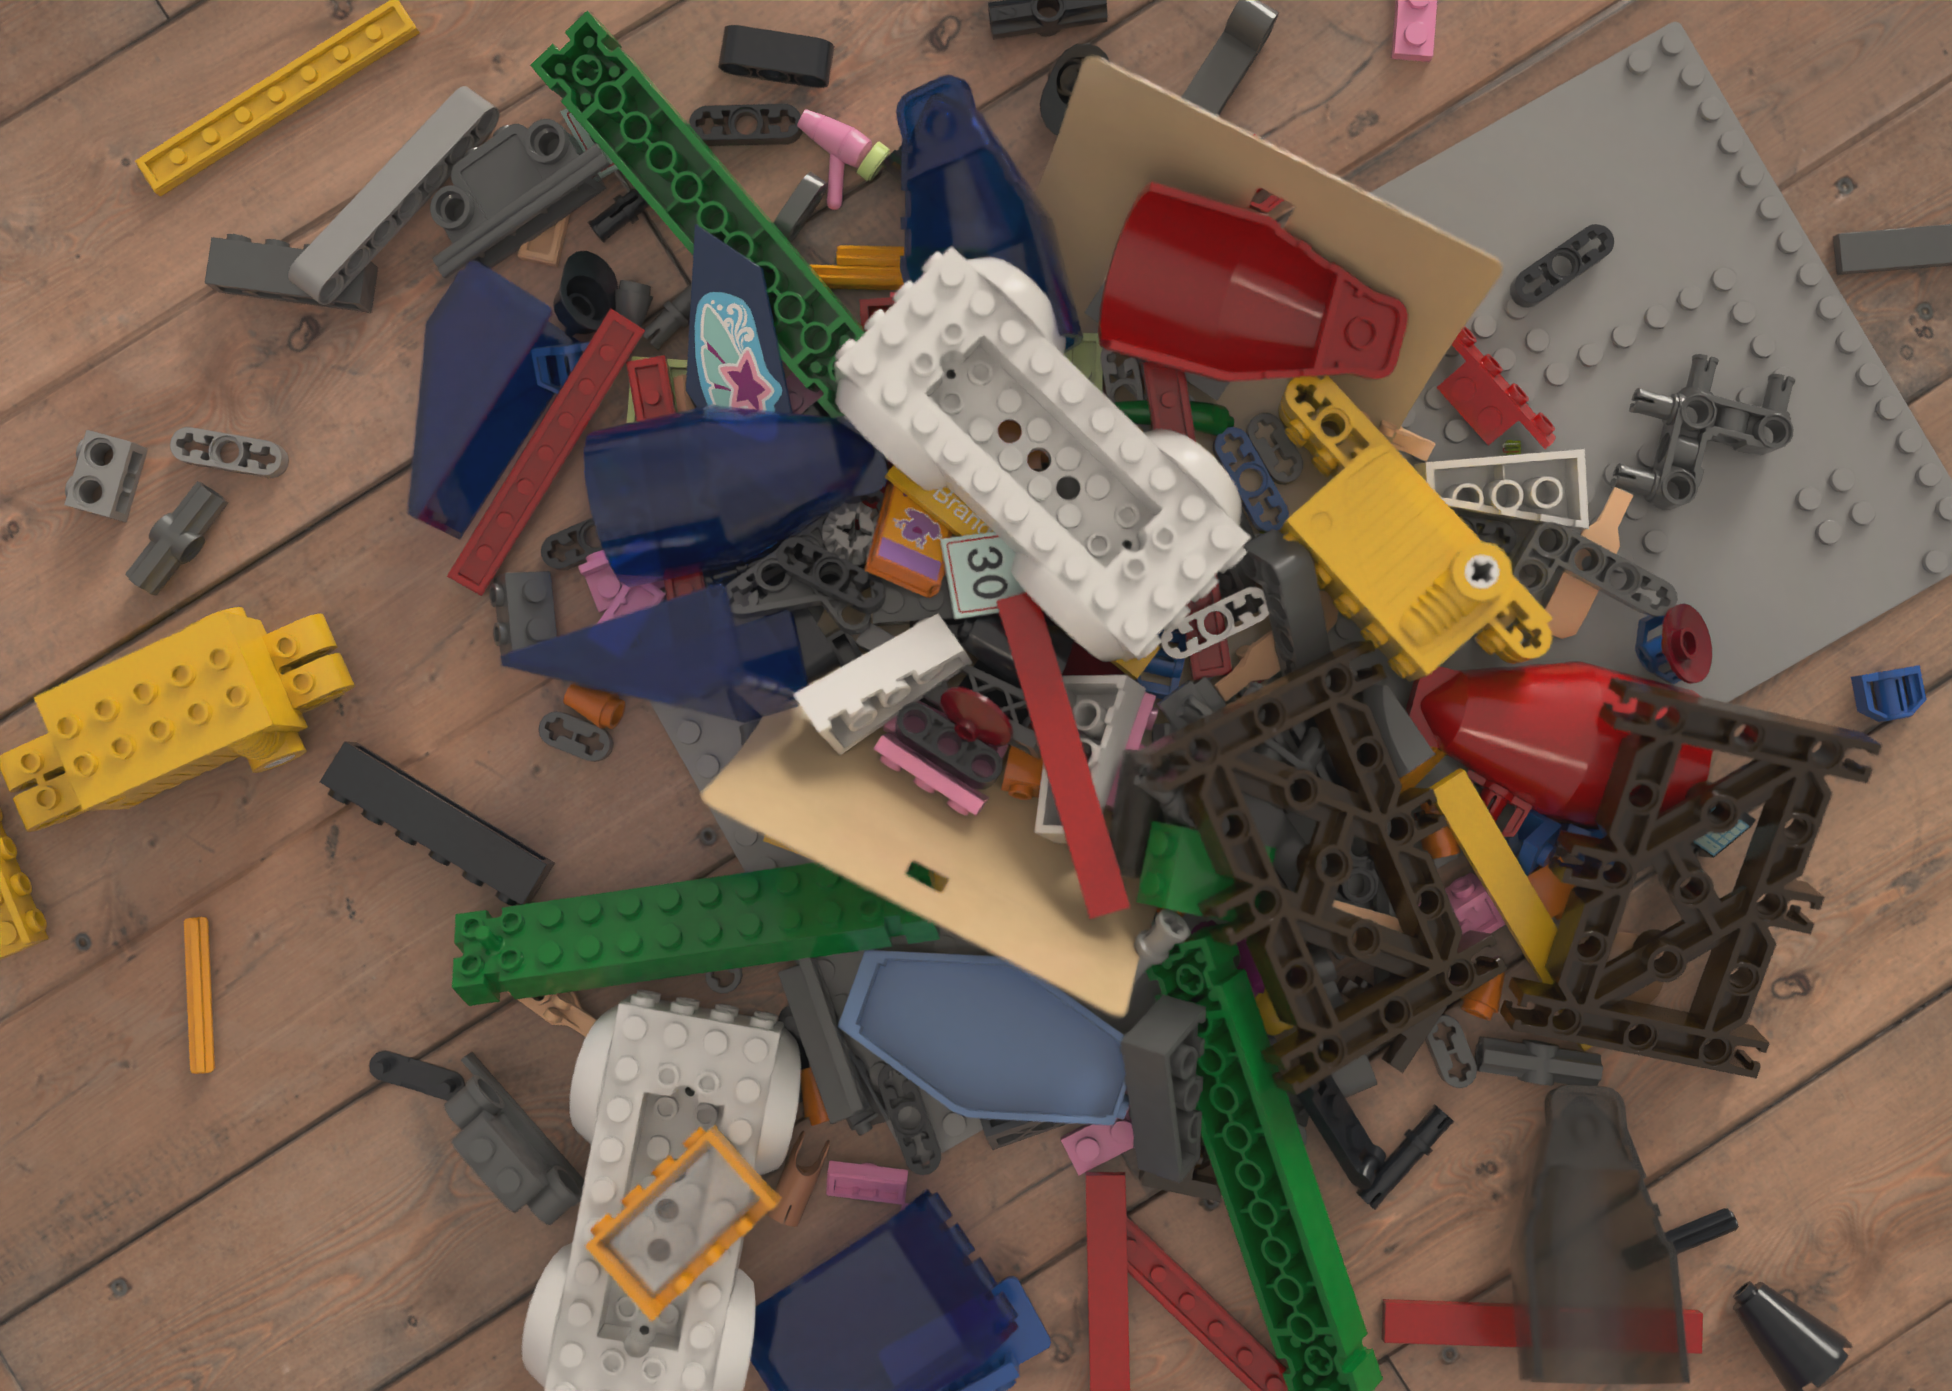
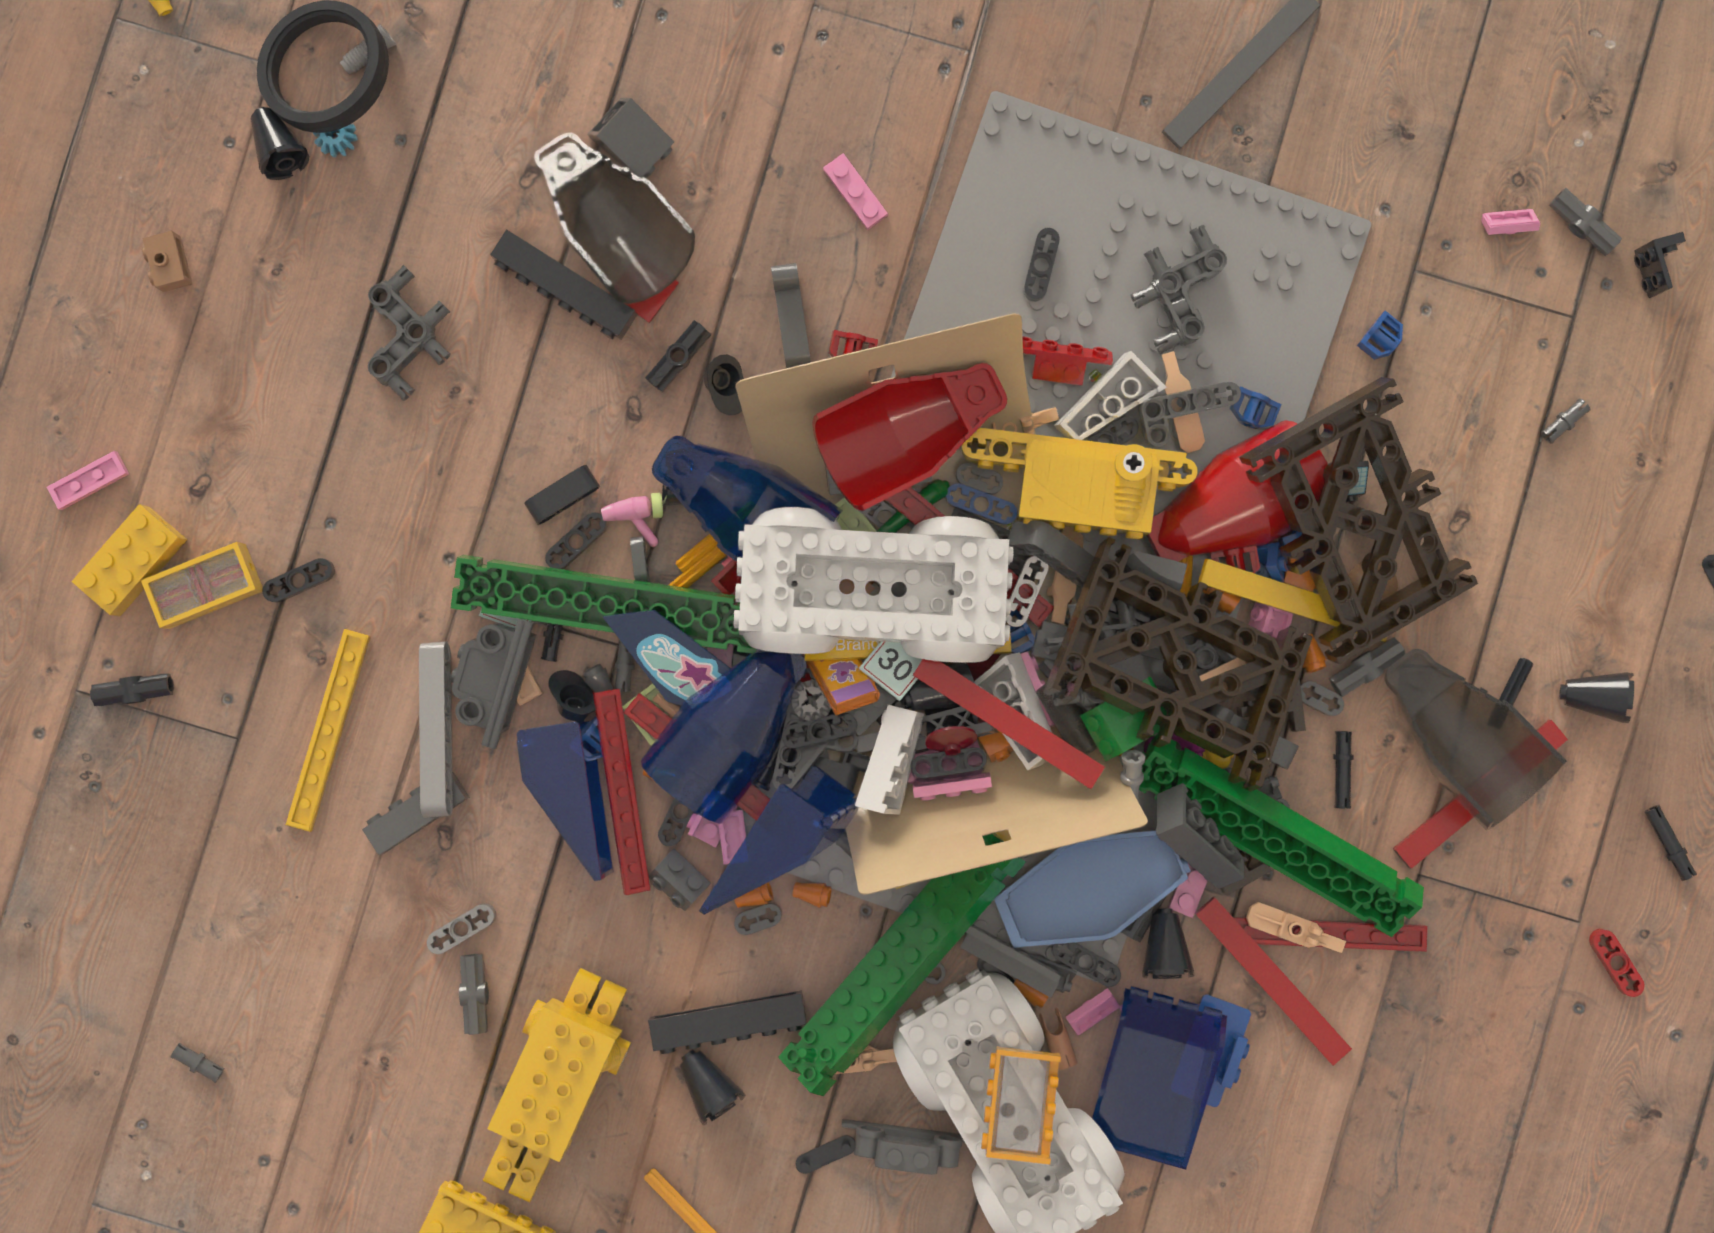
camera: 40 degrees left, 0 degrees up
(116, 479) = (417, 991): light grey brick -> none
(348, 879) = (708, 1086): none -> black cone
(664, 762) = (813, 893): none -> orange cone
(1017, 1184) = (1166, 948): none -> black cone
(1176, 1273) = (1281, 923): none -> light nougat piece
(1342, 1132) = (1301, 784): black plate -> none
(1686, 643) = (1262, 403): dark red dish -> none

